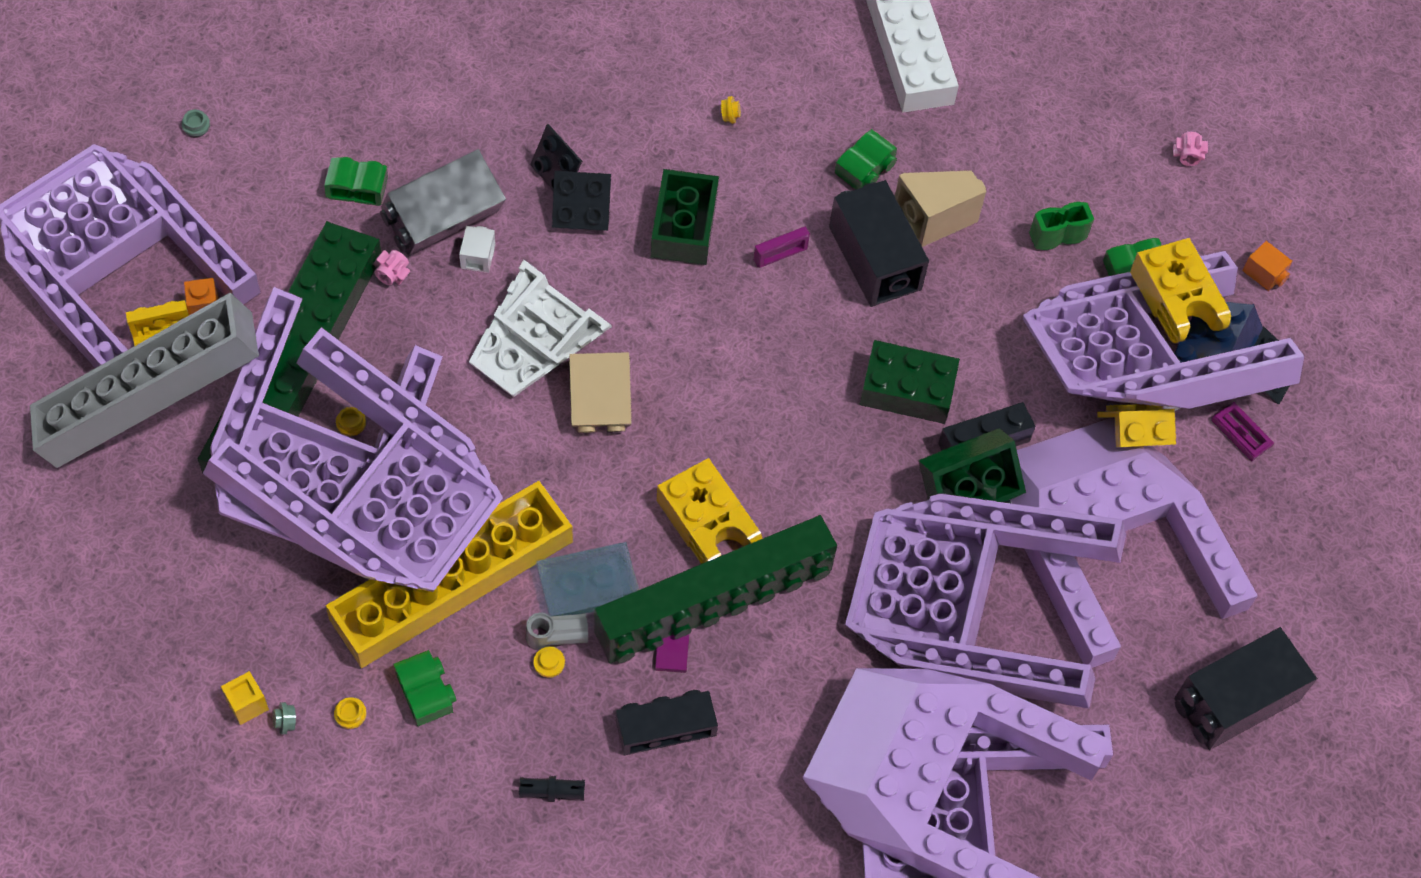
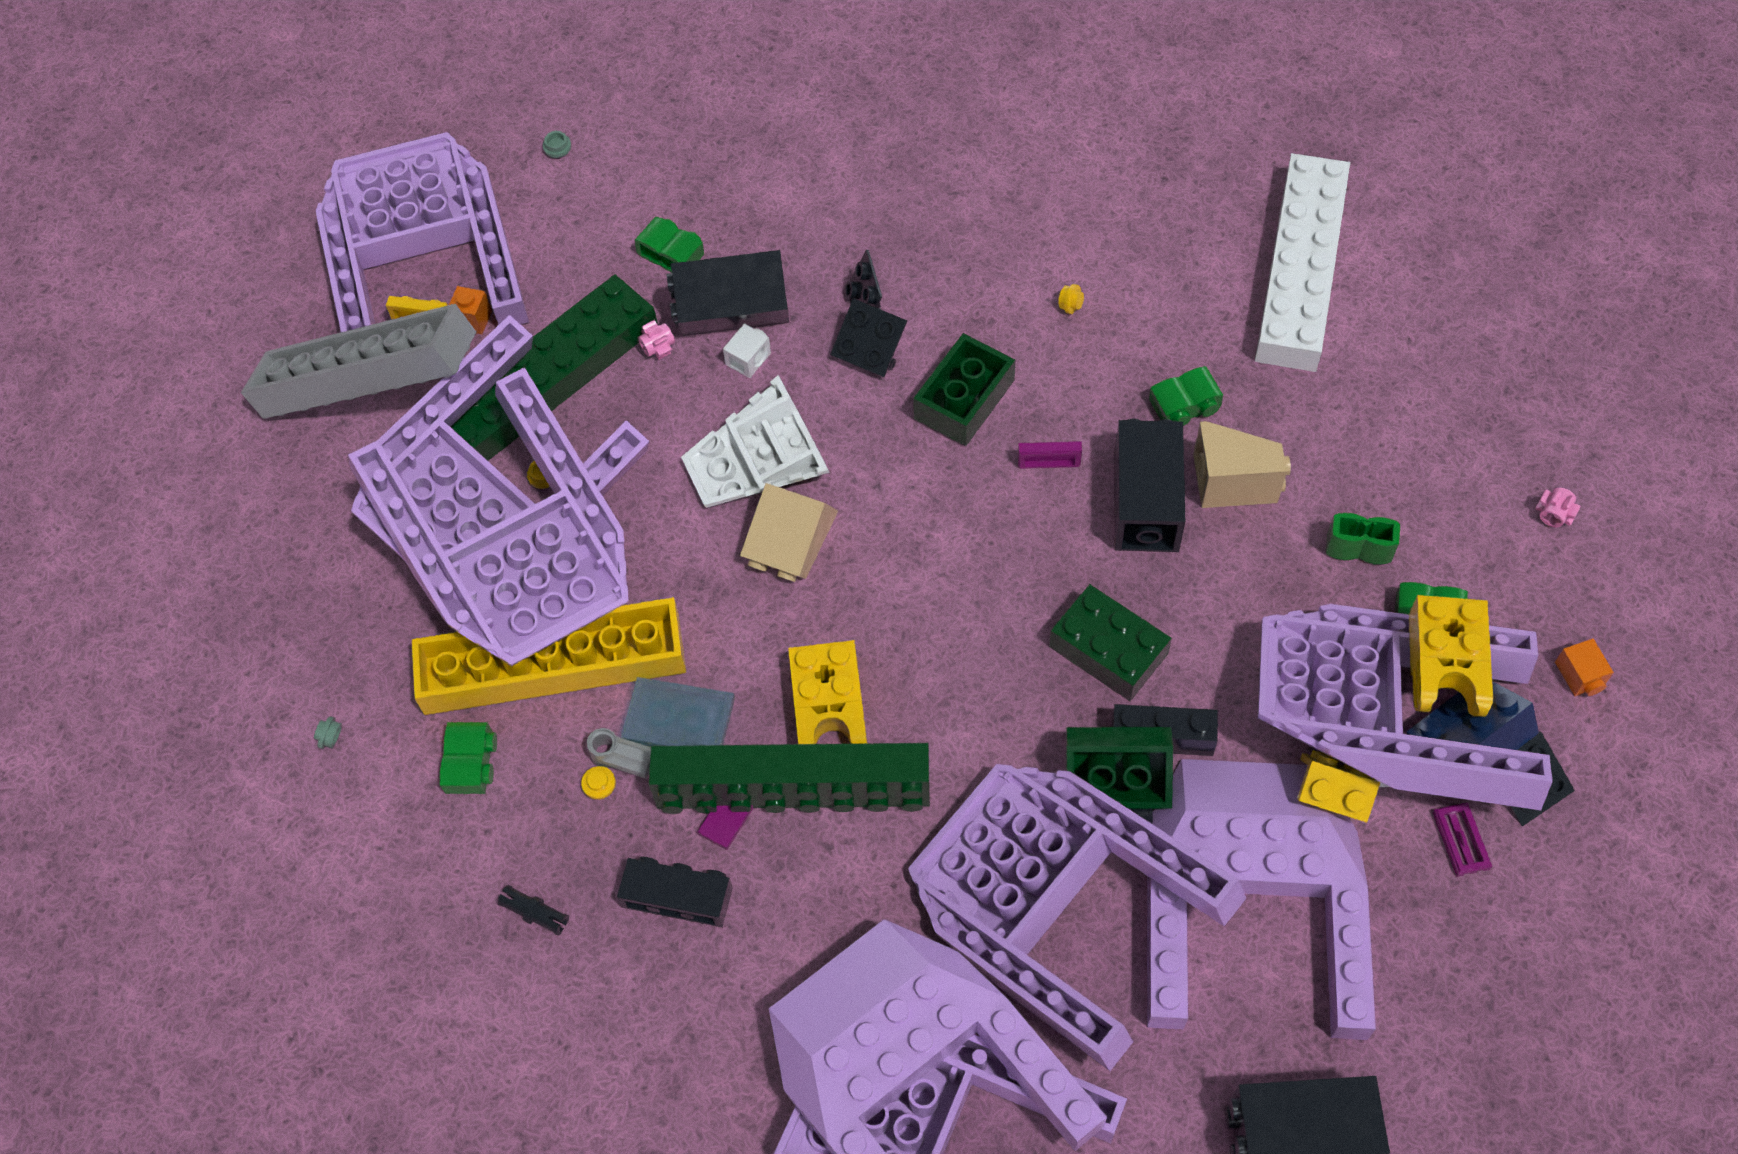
camera: 35 degrees right, 0 degrees up
(245, 697) = (299, 698): yellow panel -> none
(350, 713) = (390, 753): yellow plate -> none

